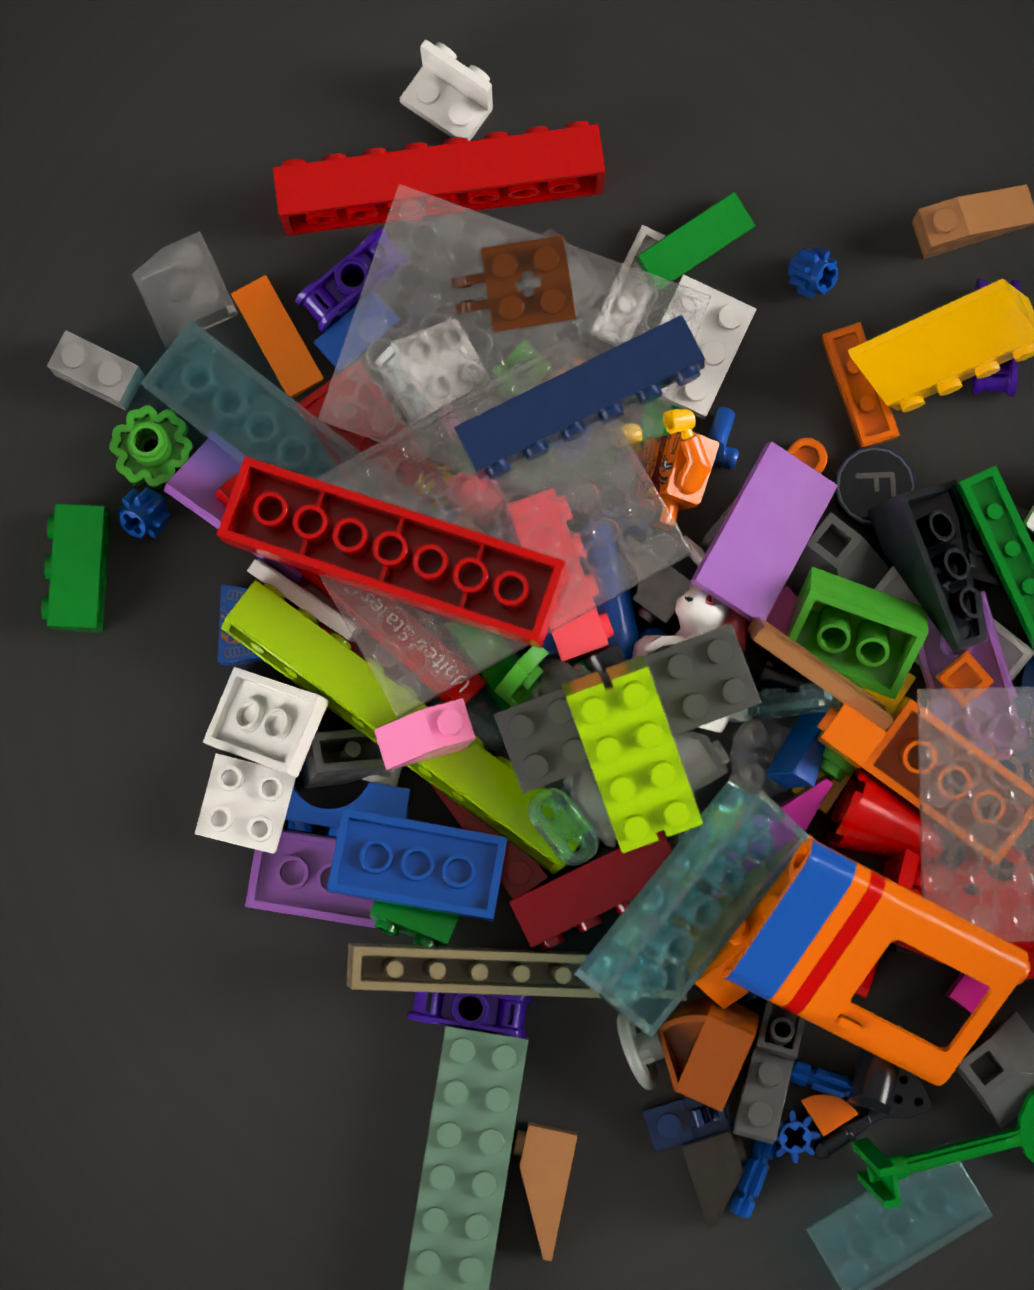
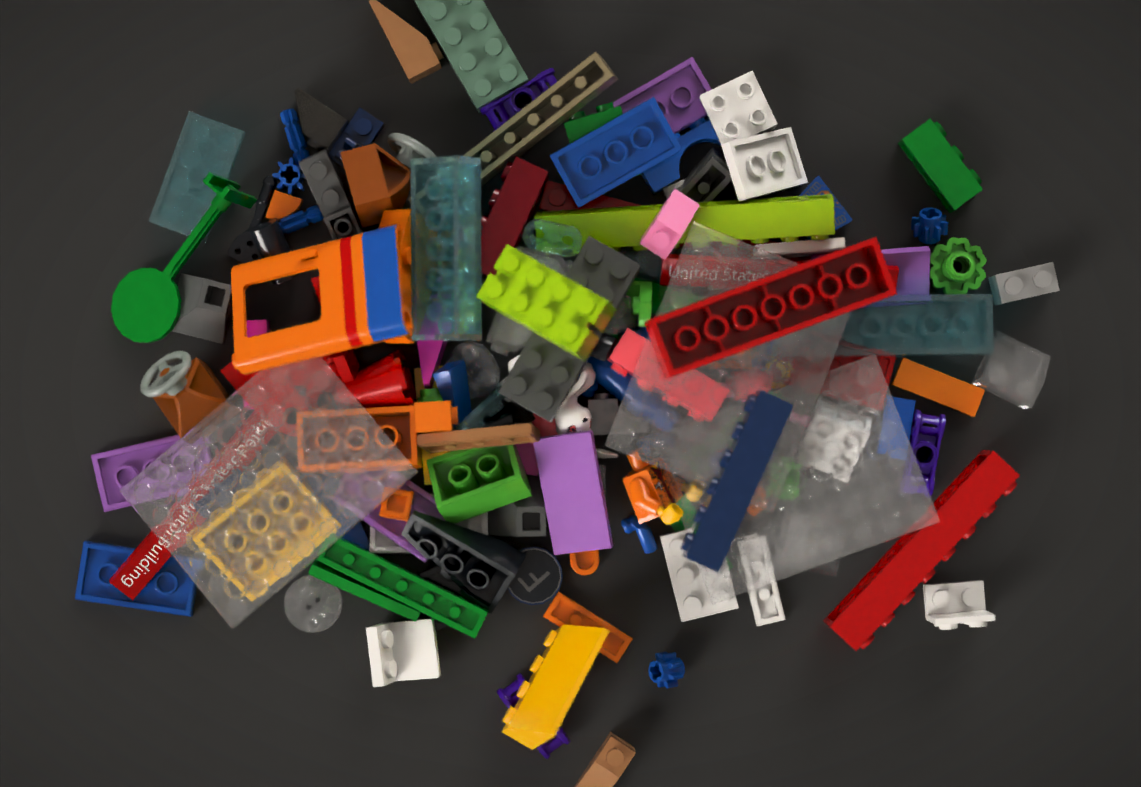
camera: 140 degrees right, 5 degrees up
(505, 267) = (839, 515): reddish brown hinge -> none
(696, 239) = (747, 634): green tile -> none

